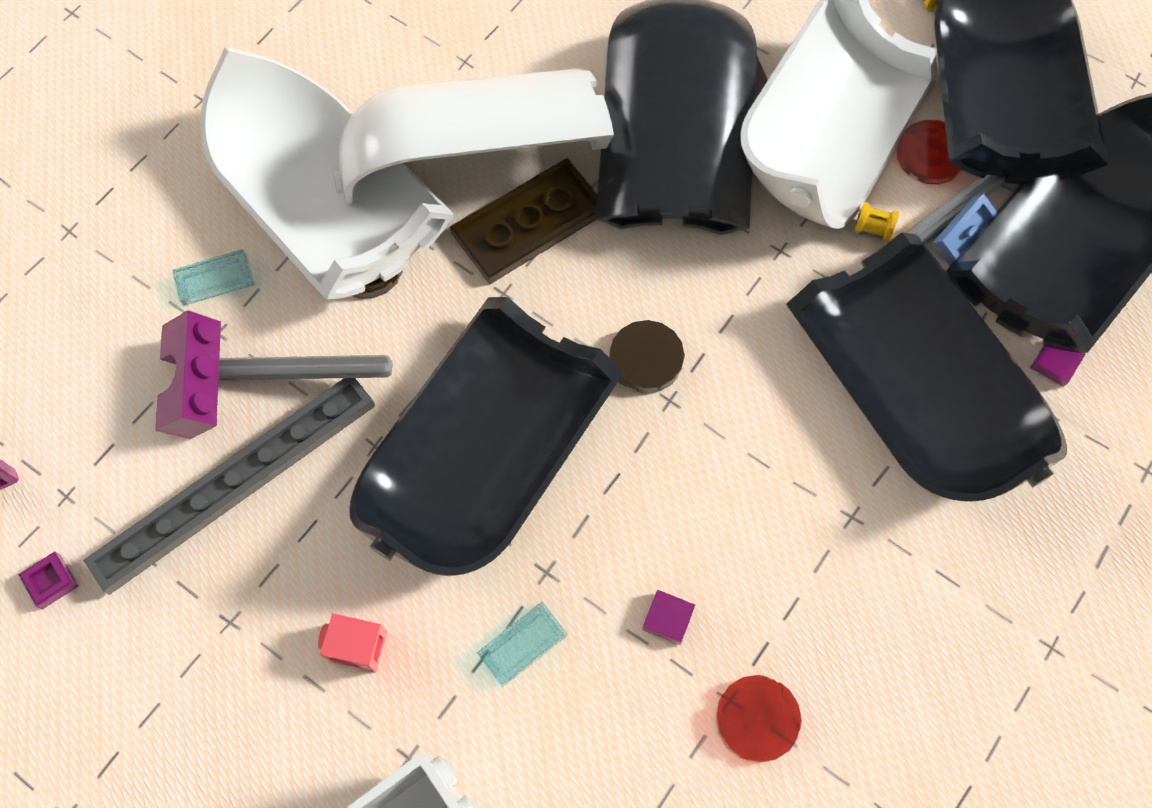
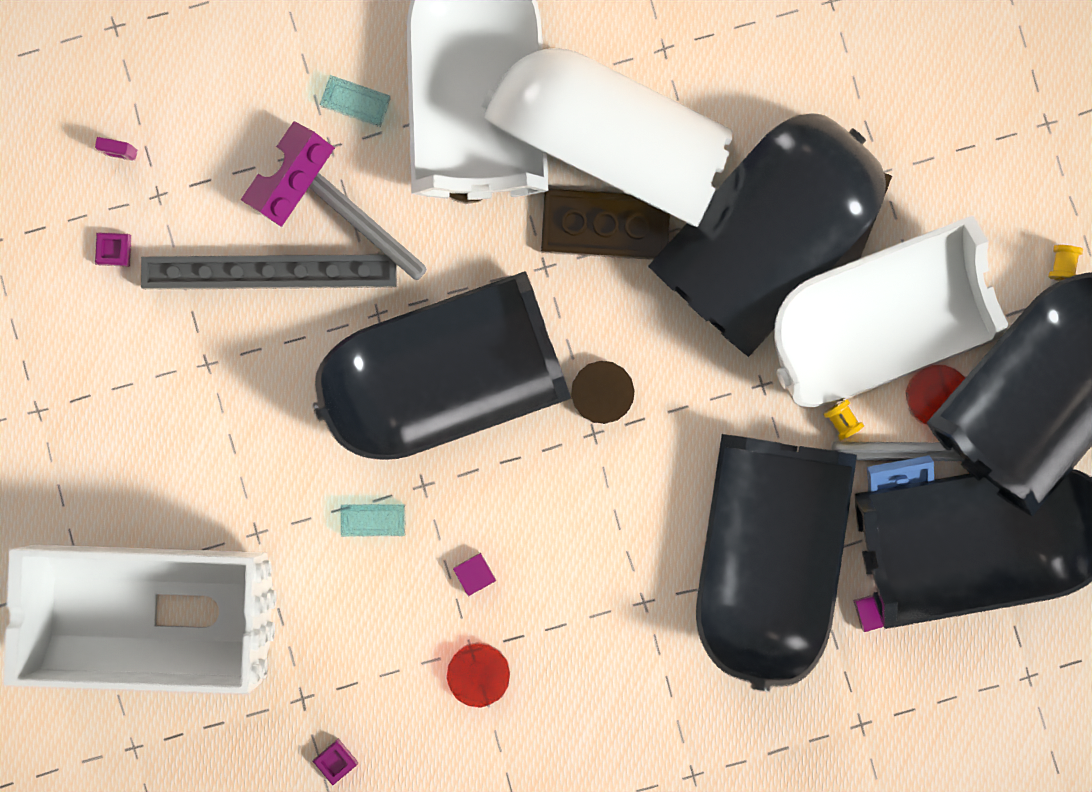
camera: 40 degrees right, 20 degrees up
(352, 642) = (269, 440): coral brick -> none

